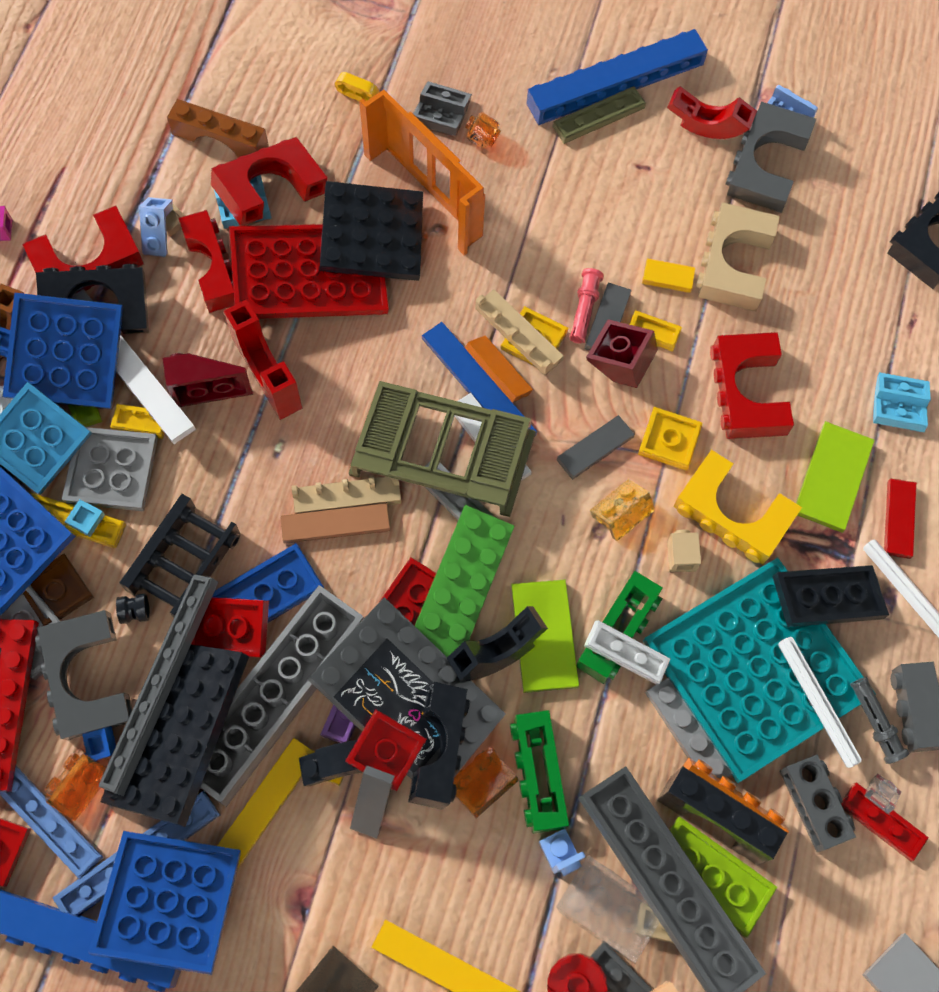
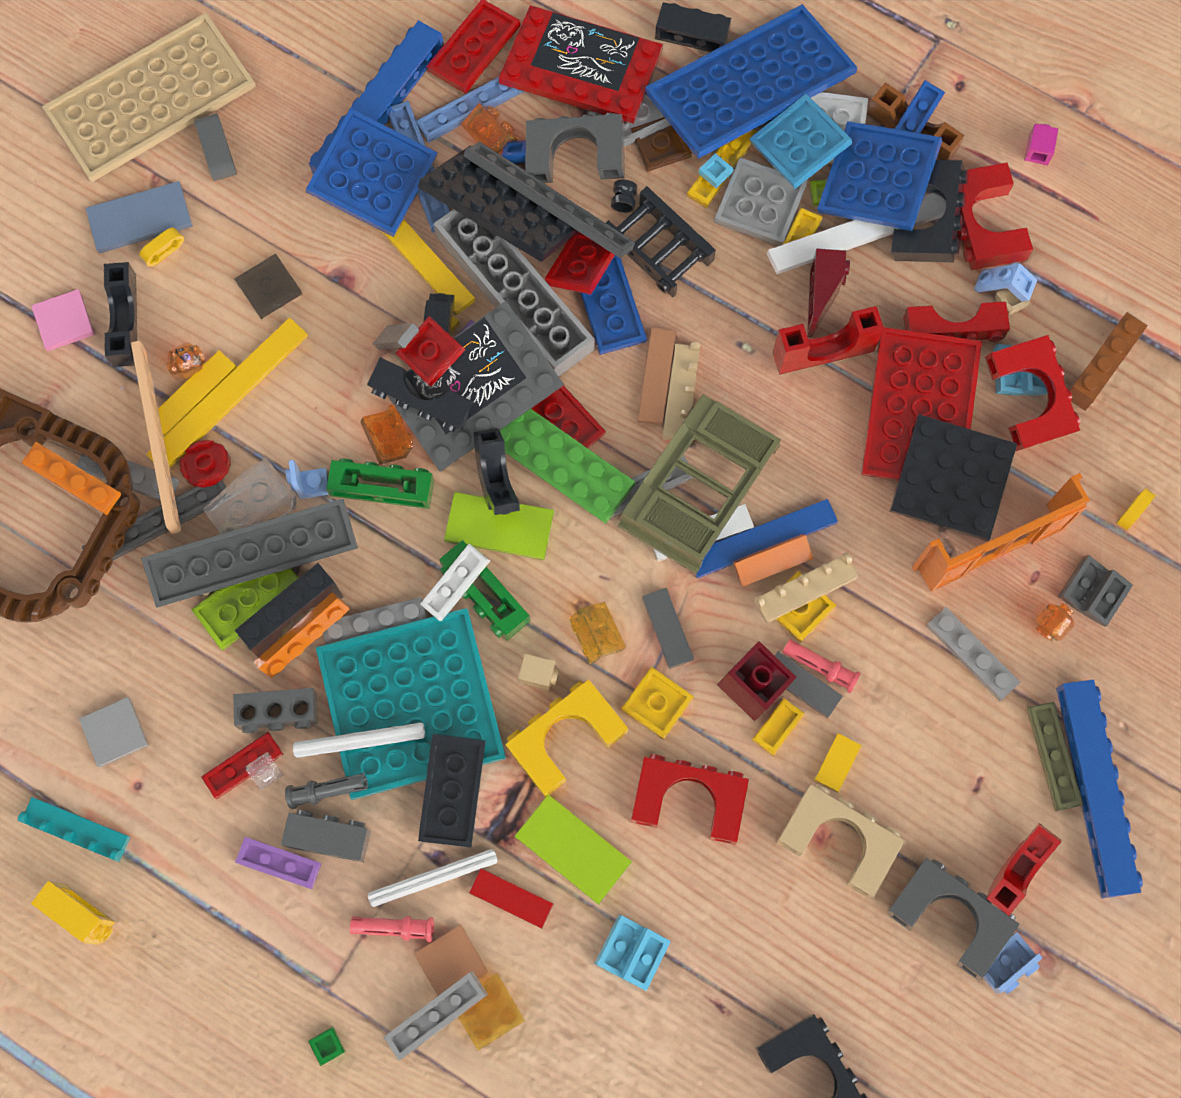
camera: 110 degrees right, 5 degrees up
(530, 191) = (973, 654): none -> light grey plate

